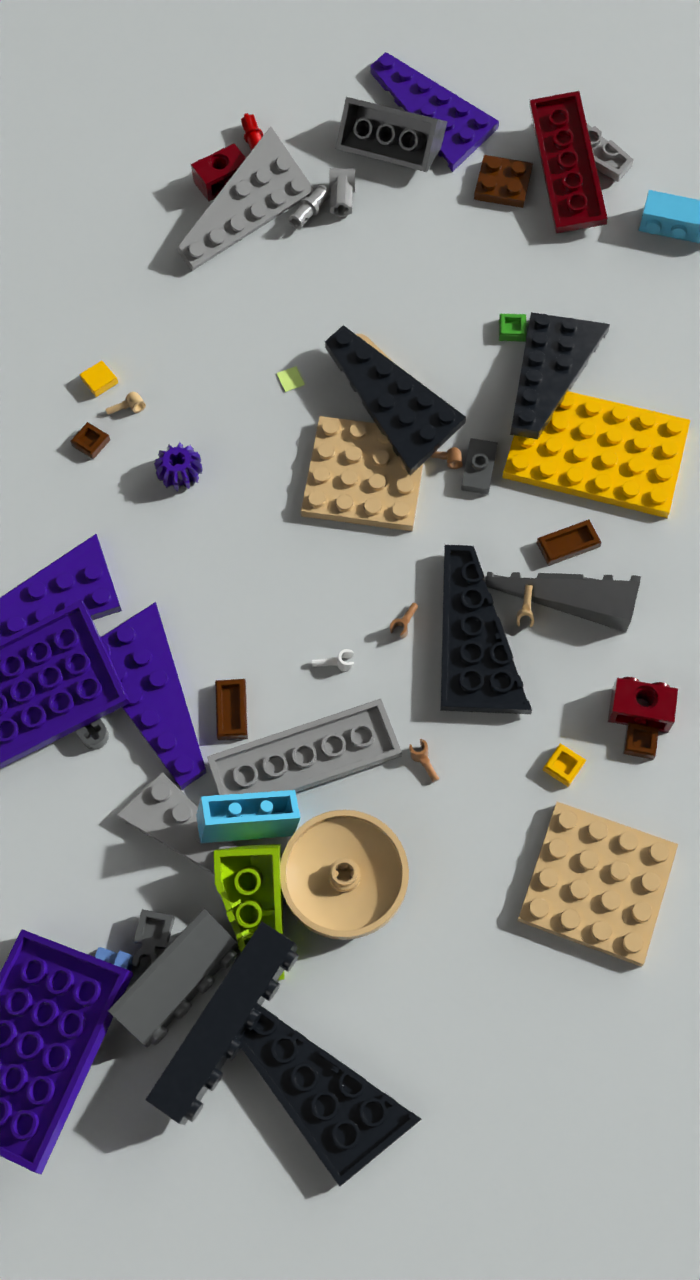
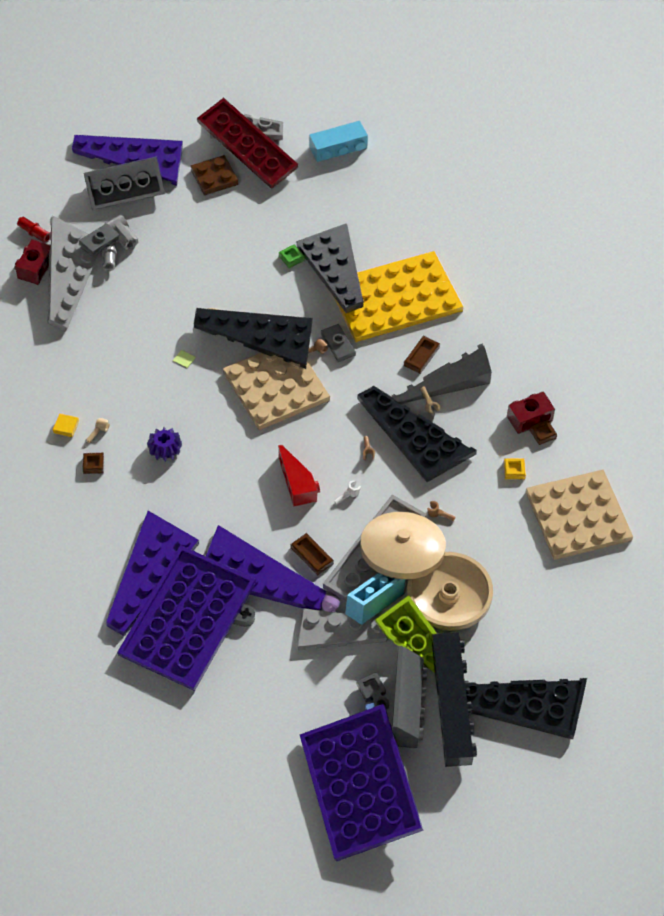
camera: 40 degrees left, 10 degrees down
(196, 787) = (330, 603): none -> lavender hinge
(285, 614) = (298, 479): none -> red slope
(304, 183) = (99, 239): none -> dark grey plate
(330, 776) = (402, 545): none -> tan dish

